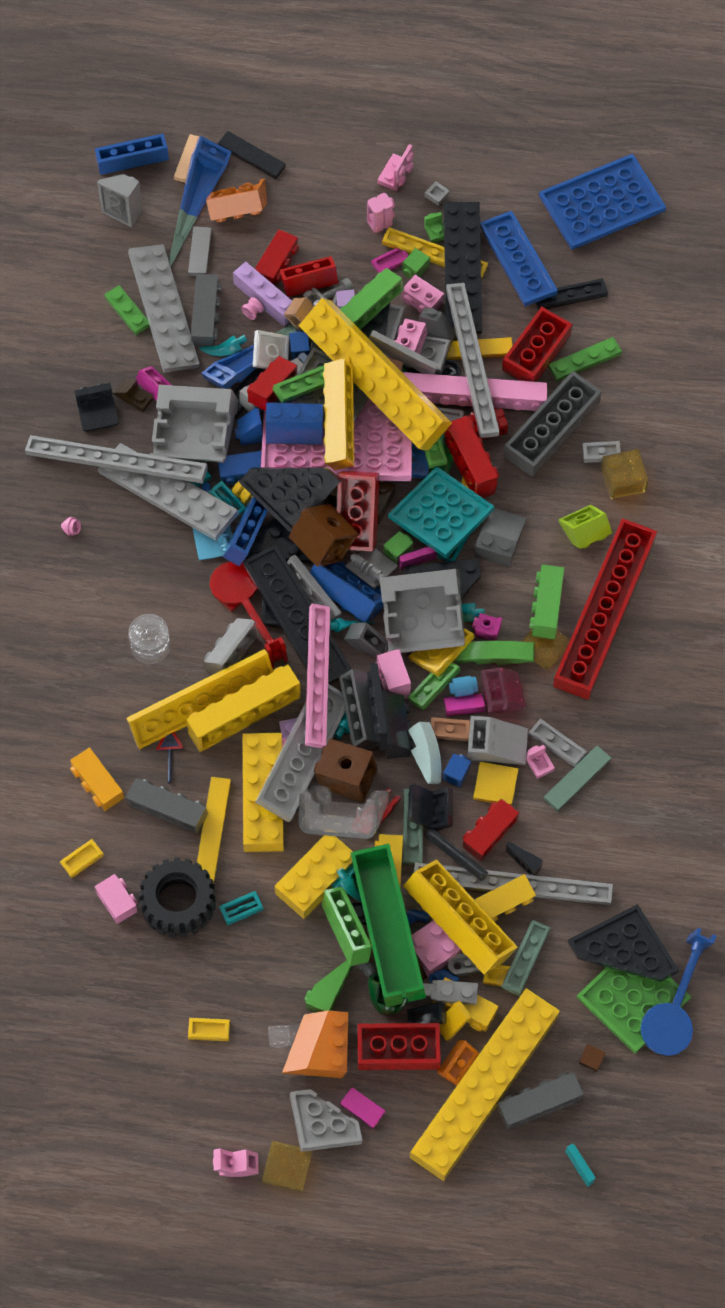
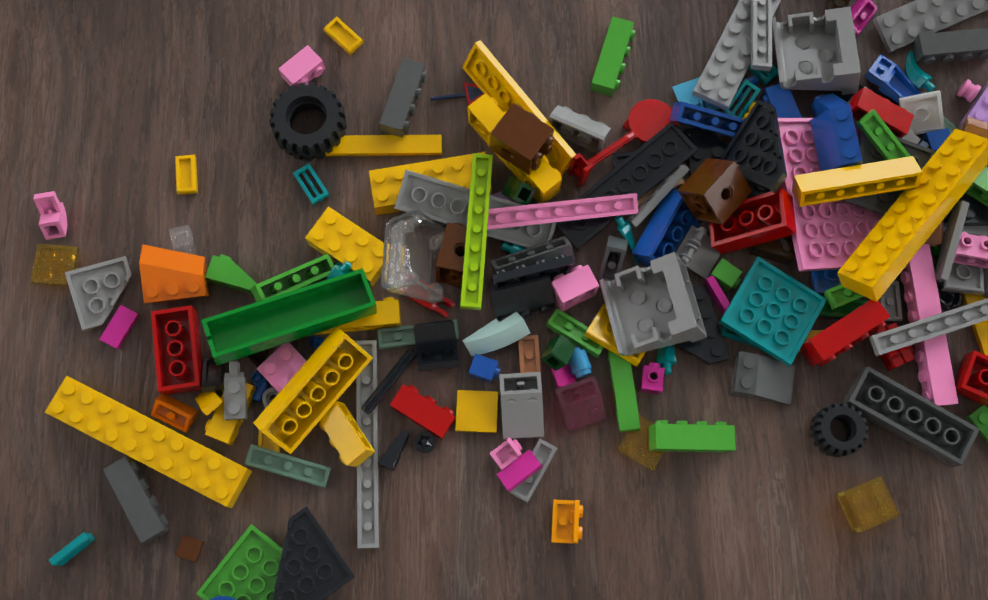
camera: 80 degrees right, 10 degrees up
(96, 779) = (422, 32): light orange brick -> none
(148, 600) = (612, 56): none -> bright green brick
(153, 647) = (574, 52): clear wheel -> none
(248, 687) = (522, 139): none -> reddish brown brick
(289, 708) = (519, 191): none -> dark green brick
(331, 743) = (476, 232): none -> lime plate
(453, 699) = (558, 352): none -> dark green brick
(518, 834) = (424, 442): none -> black tile
(556, 469) = (853, 422): none -> black tyre
(557, 752) = (519, 470): none -> dark pink tile
(577, 778) = (496, 496): sand green tile -> none
(586, 526) = (793, 469): lime slope -> none
(596, 450) = (888, 469): light grey plate -> none
(604, 609) = (698, 502): red brick -> none
(608, 719) = (566, 521): none -> light orange bracket

